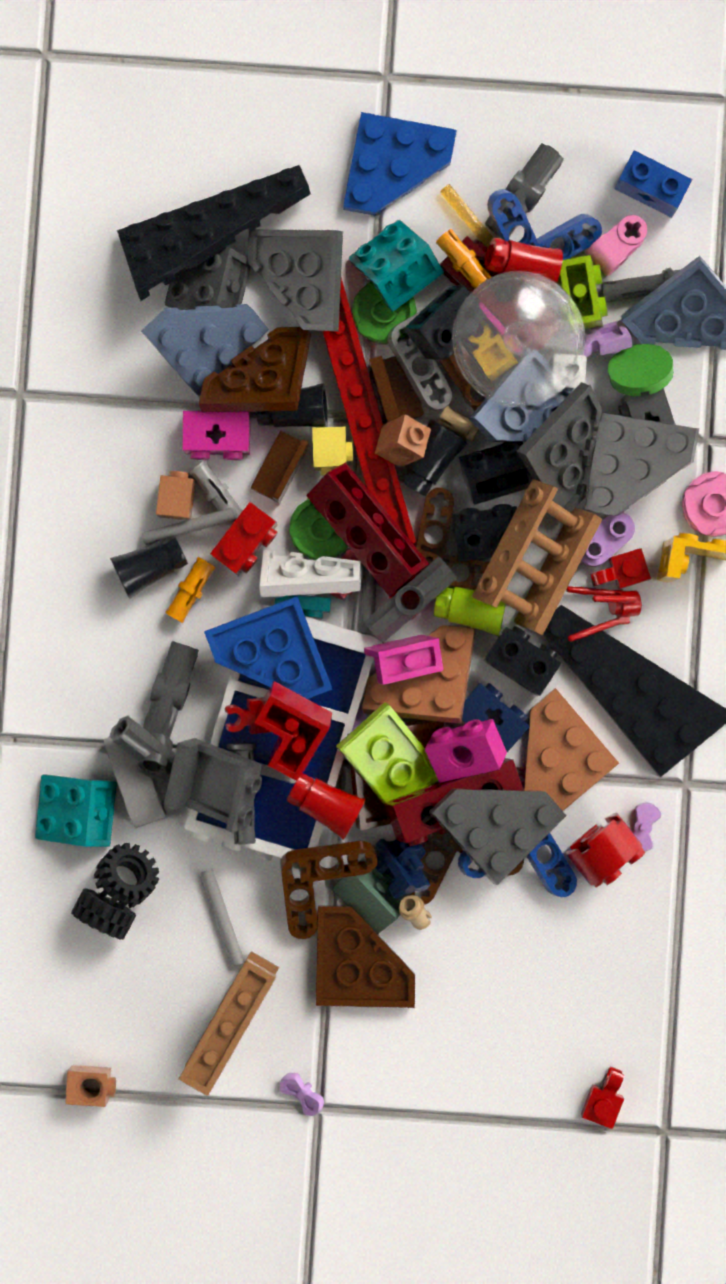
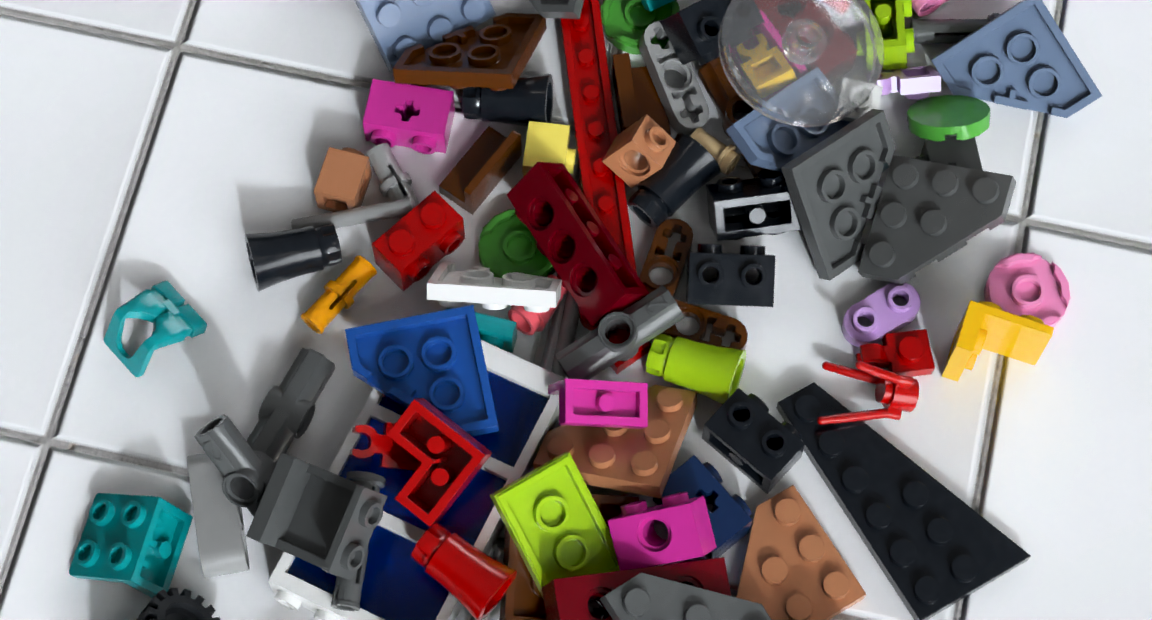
camera: 10 degrees right, 20 degrees down
(62, 625) = (170, 321): none -> teal piece
(557, 569) = (824, 318): medium nougat fence -> none

